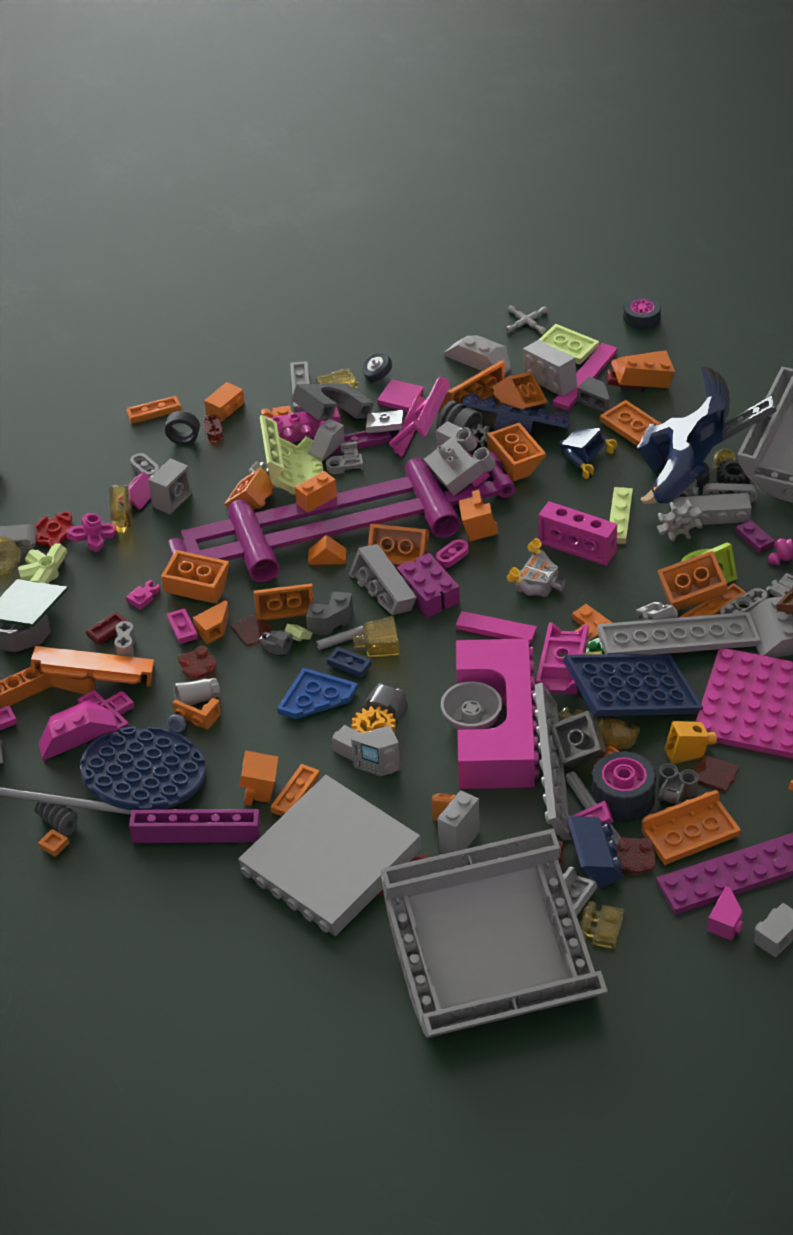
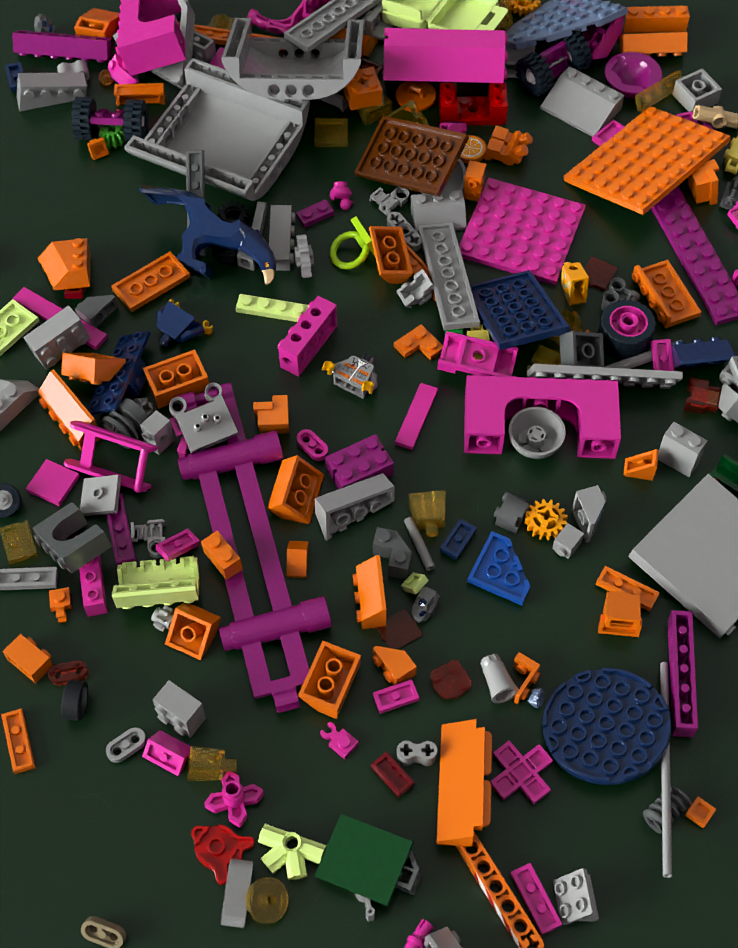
camera: 90 degrees left, 15 degrees up
(75, 727) = (552, 795): dark pink wedge -> none
(327, 439) = (128, 548): light grey slope -> none
(333, 468) = (177, 545): none -> dark pink plate
(636, 854) = (693, 330): clear red piece -> none

